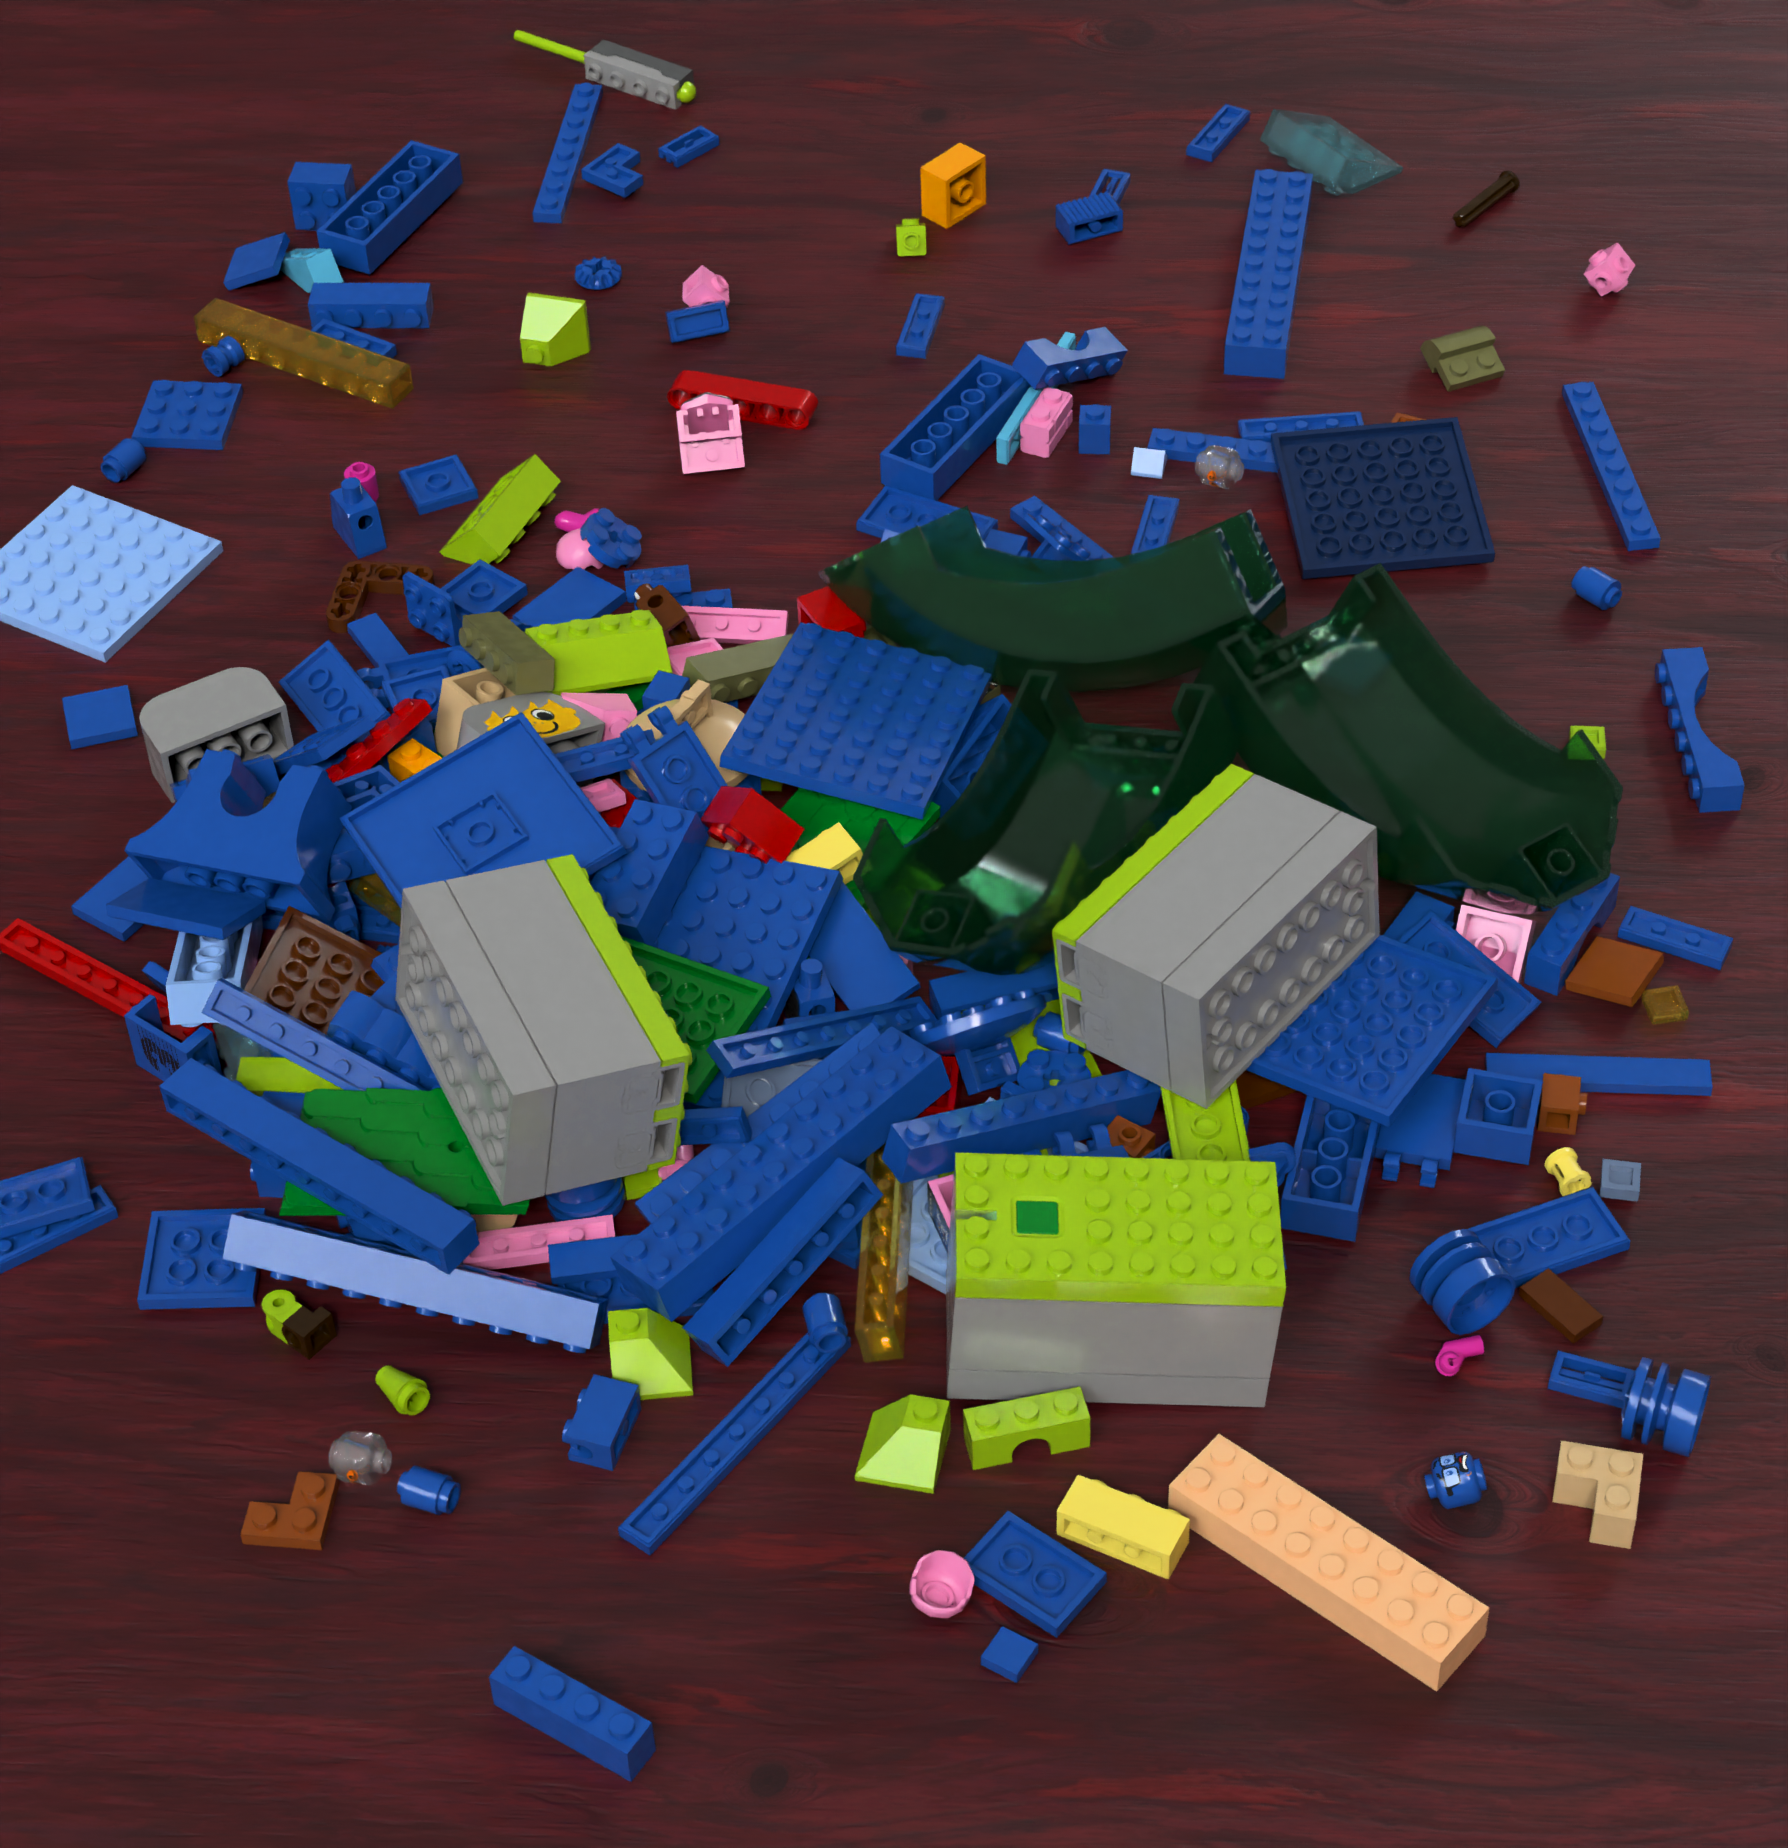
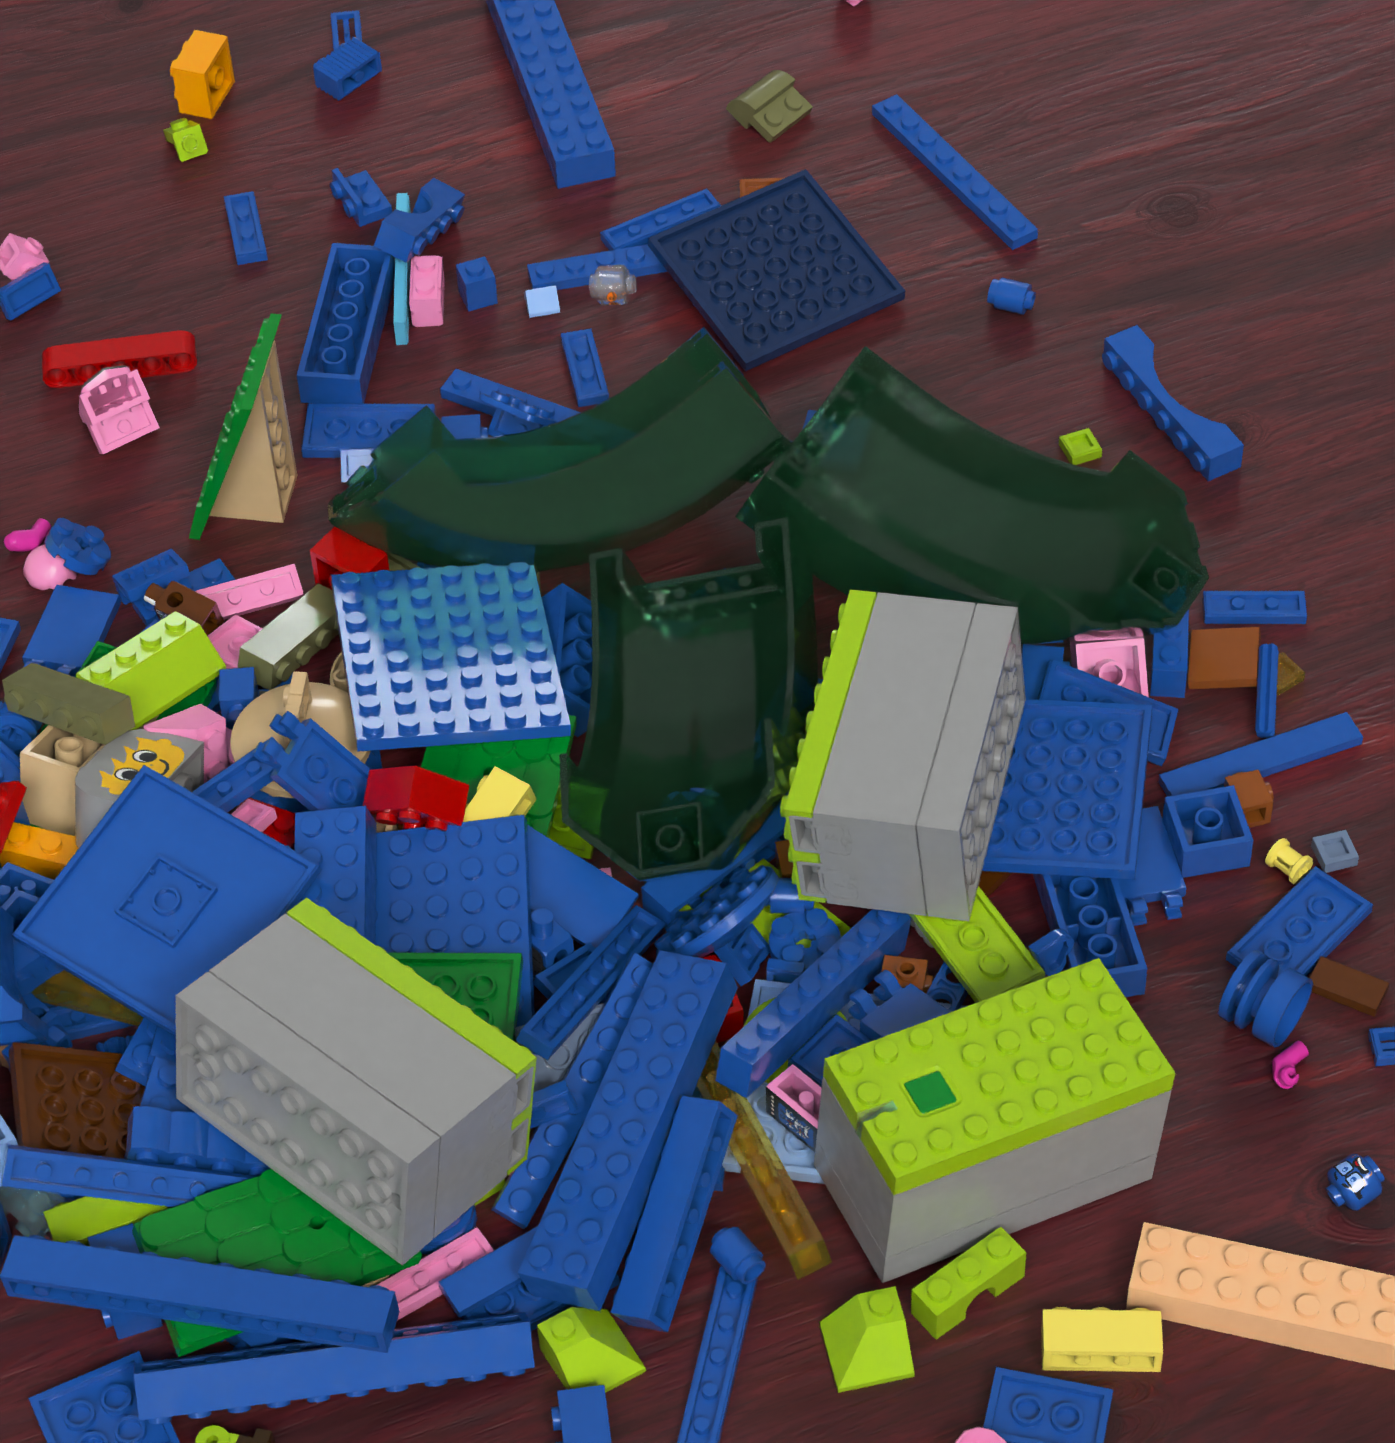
camera: 25 degrees left, 5 degrees up
(794, 492) = (254, 453): none -> tan piece
(1035, 323) = (360, 197): none -> blue bracket
(1638, 1013) = (1266, 690): none -> blue axle

